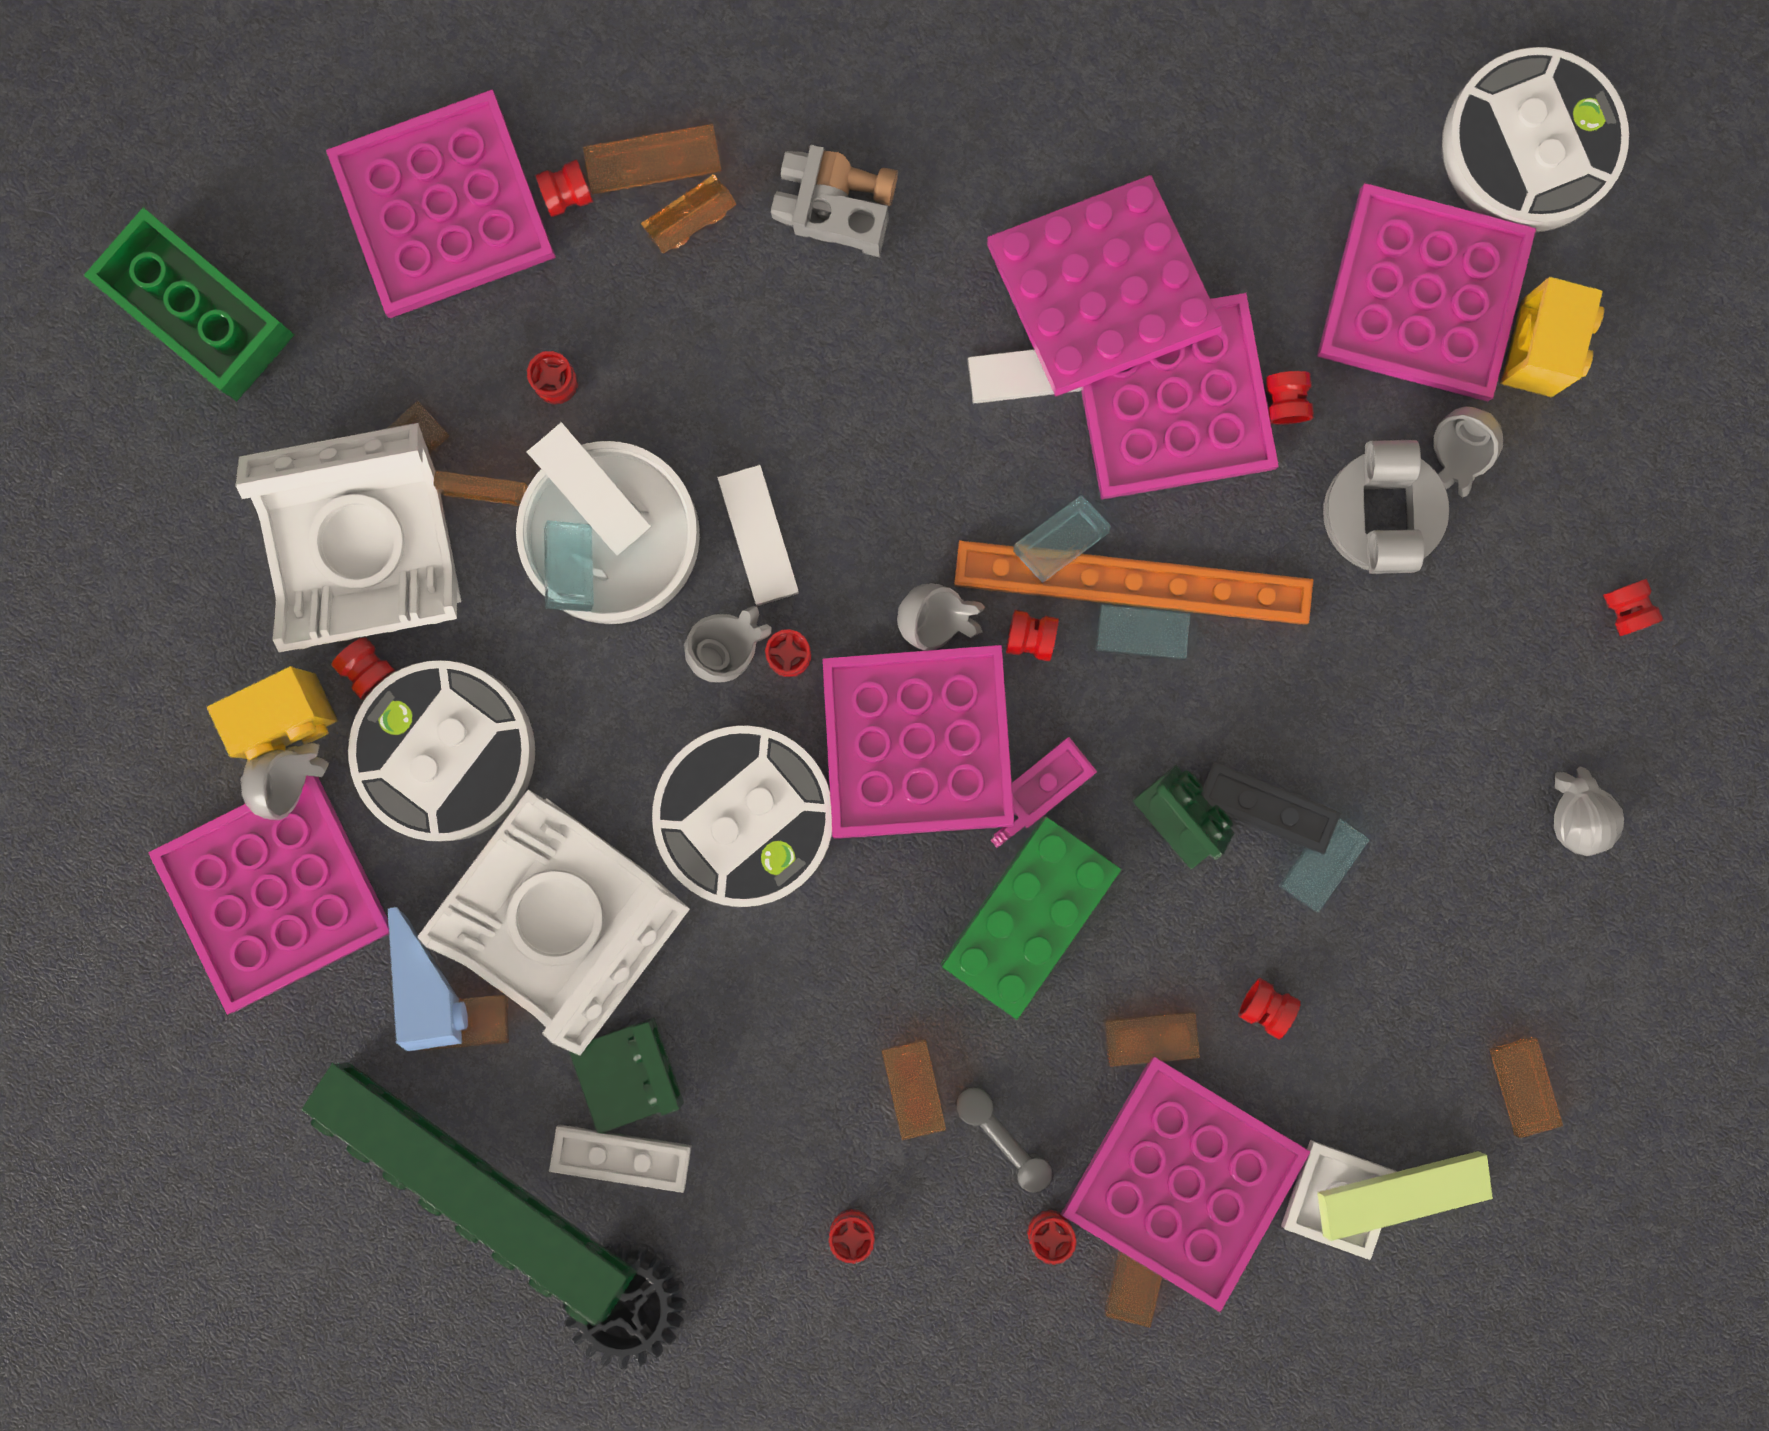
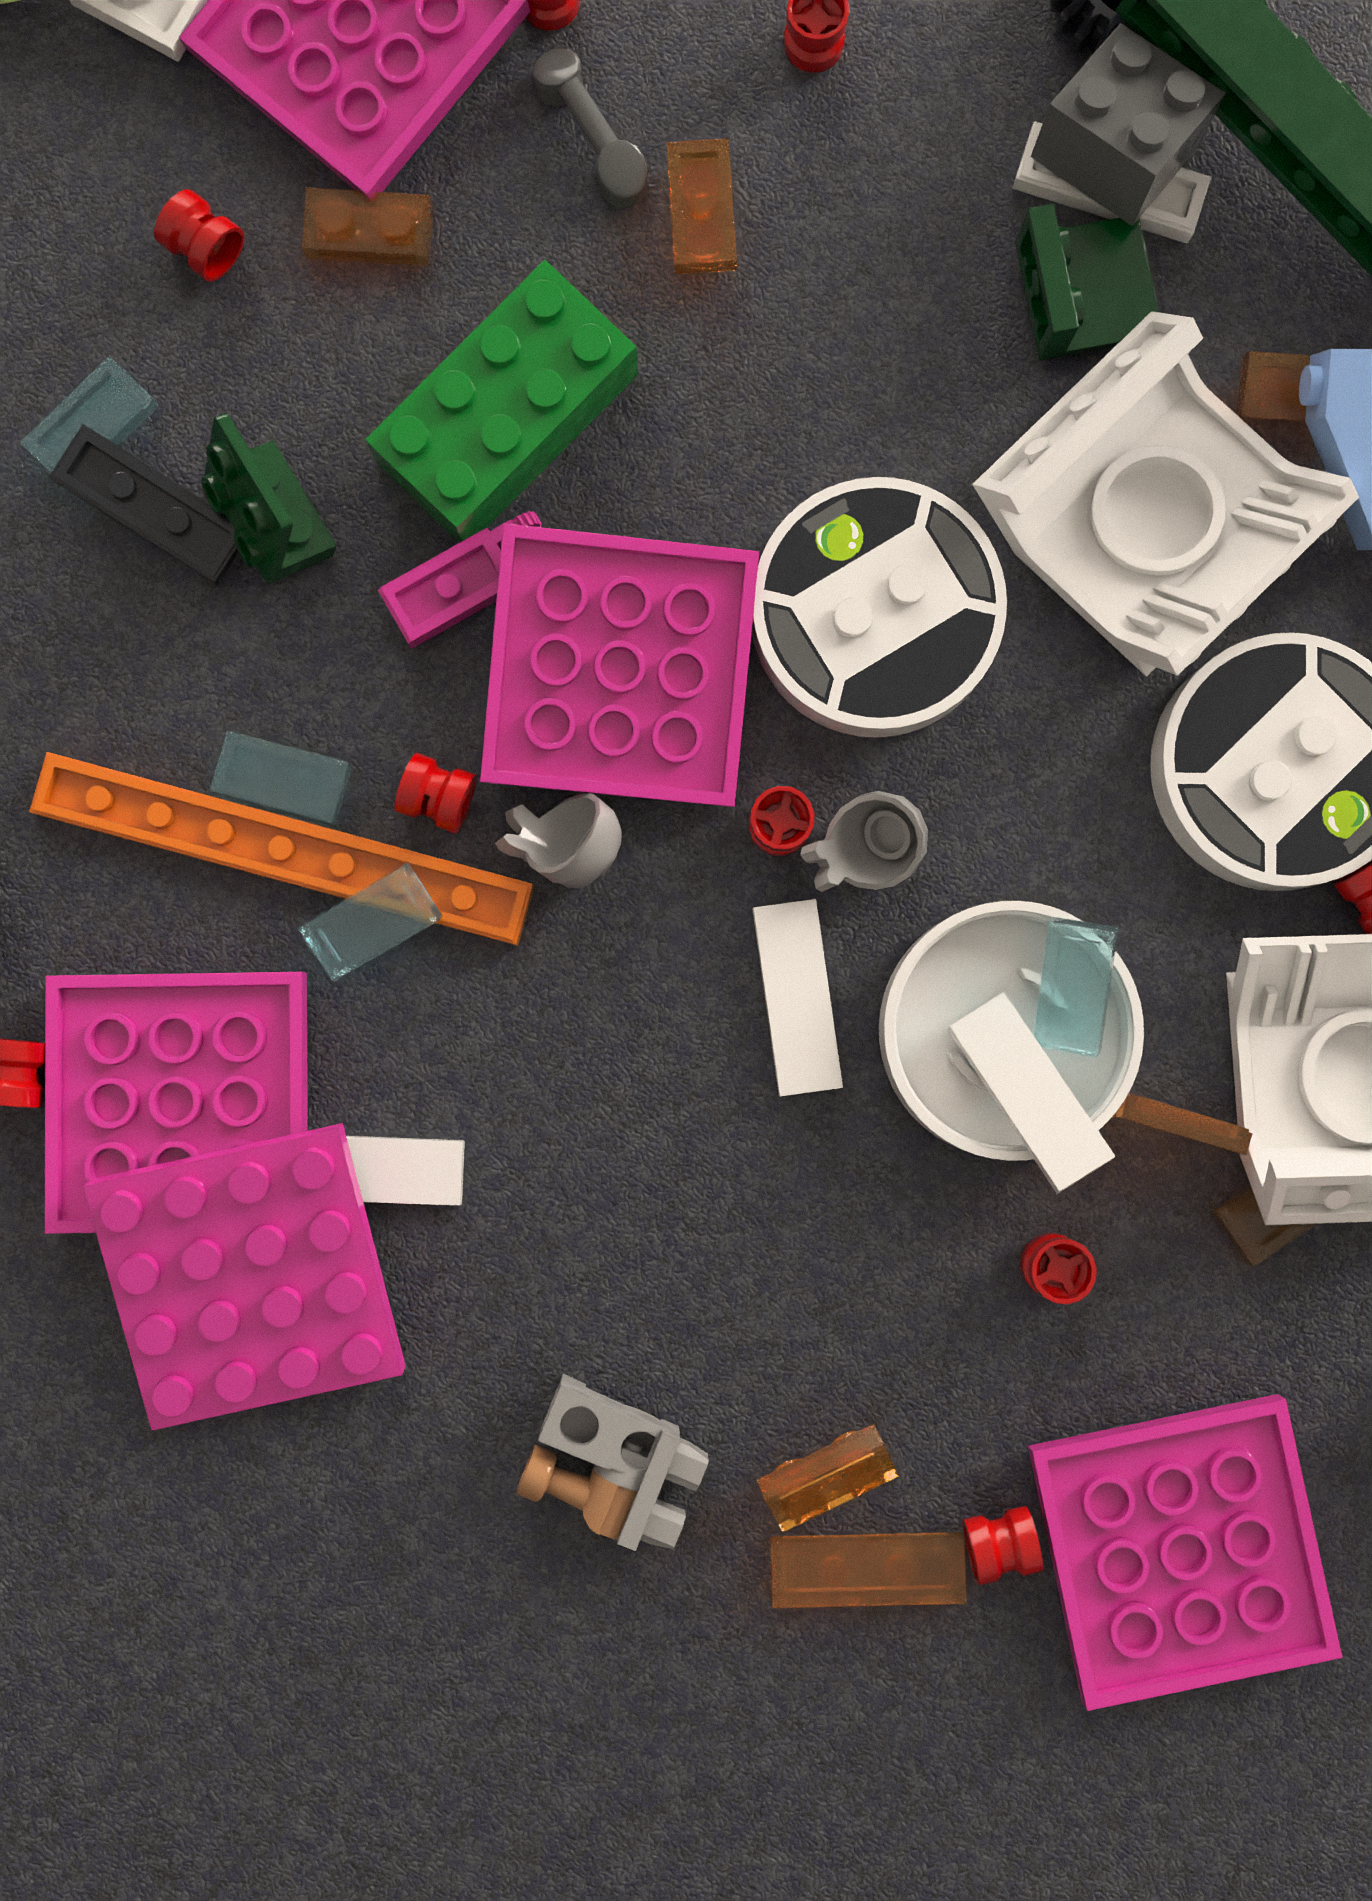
camera: 170 degrees left, 0 degrees up
(617, 1189) = (1126, 124): none -> dark grey brick

